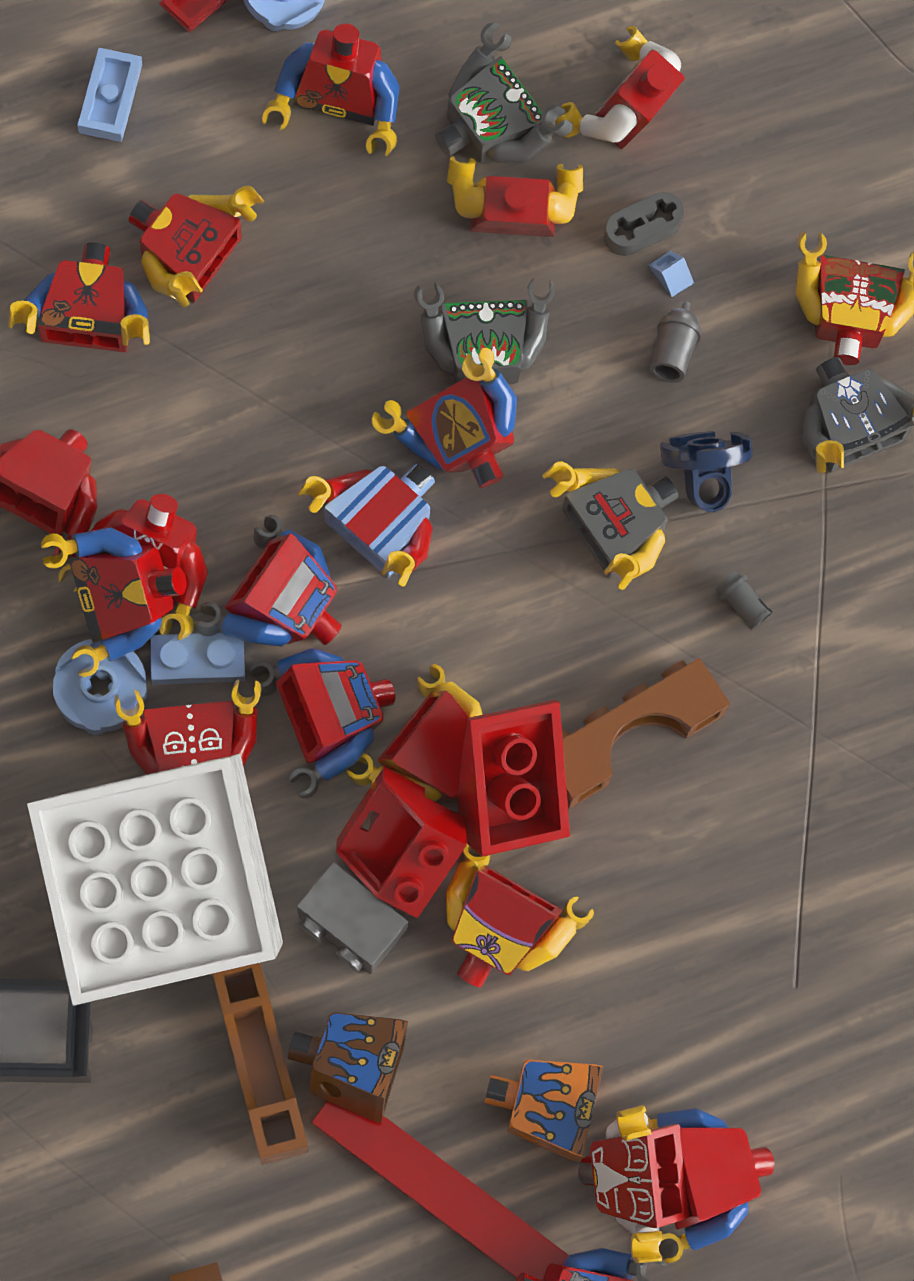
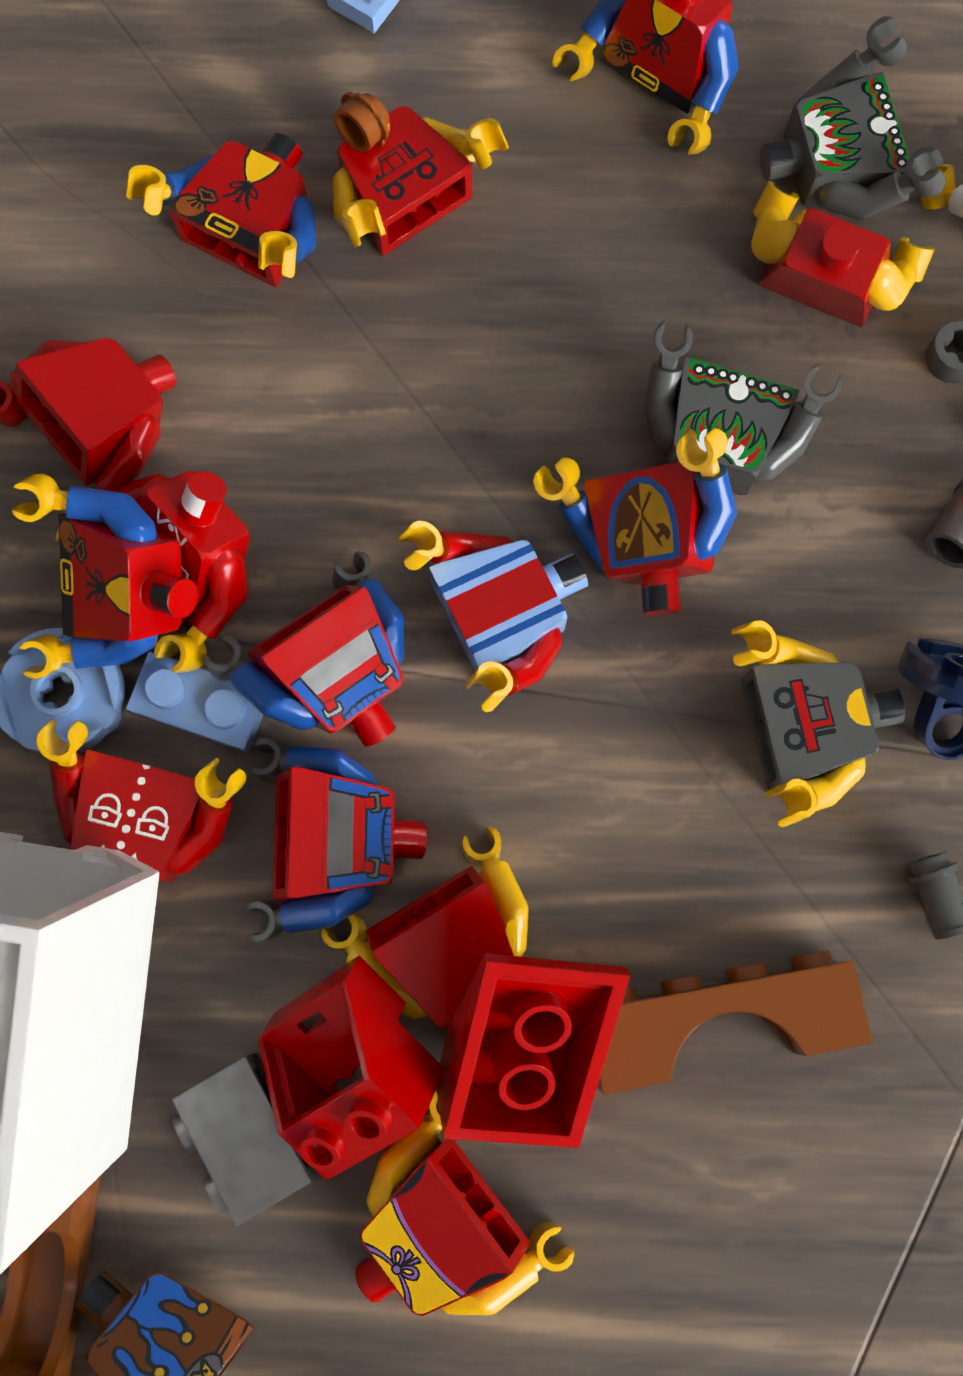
camera: 30 degrees right, 5 degrees up
(154, 217) = (362, 121): none -> dark orange plate

